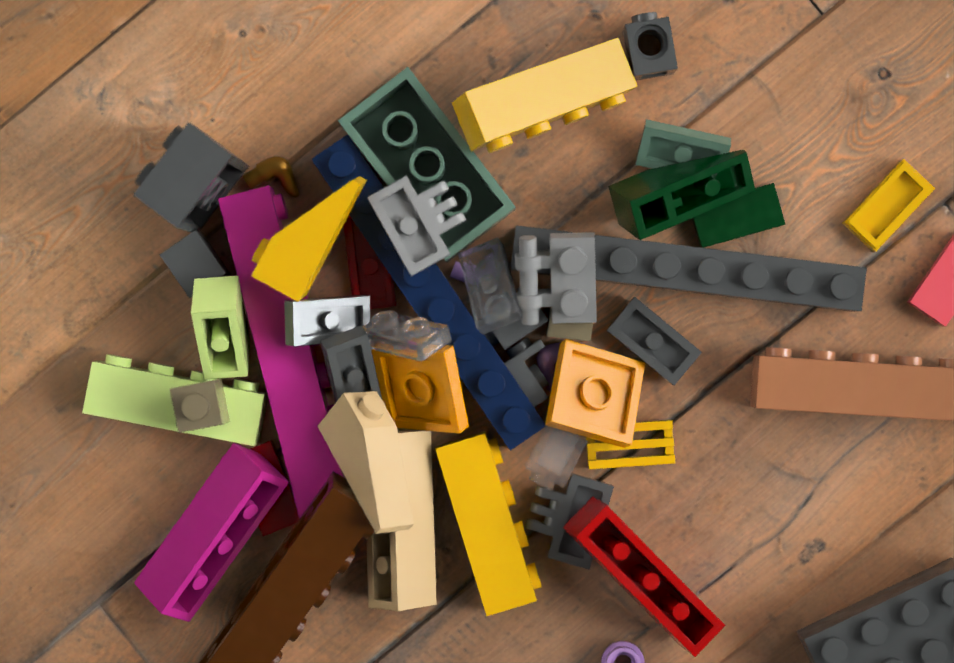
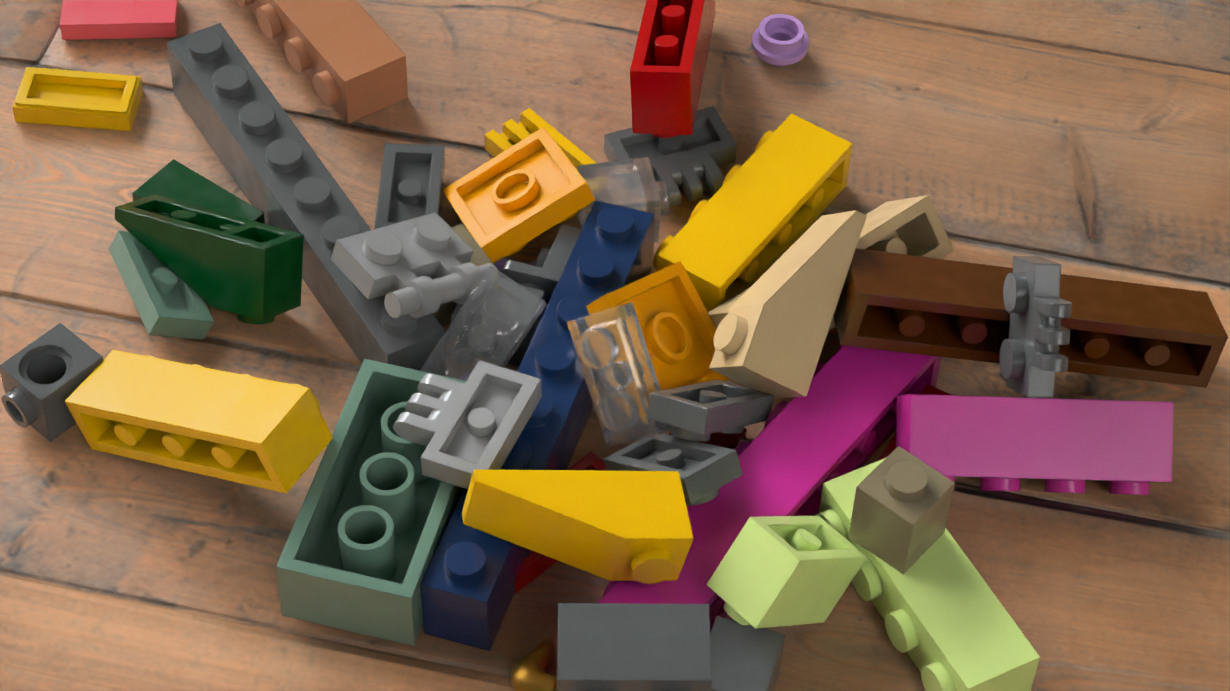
camera: 130 degrees left, 40 degrees down
(240, 564) = (1035, 327): none -> dark grey hinge

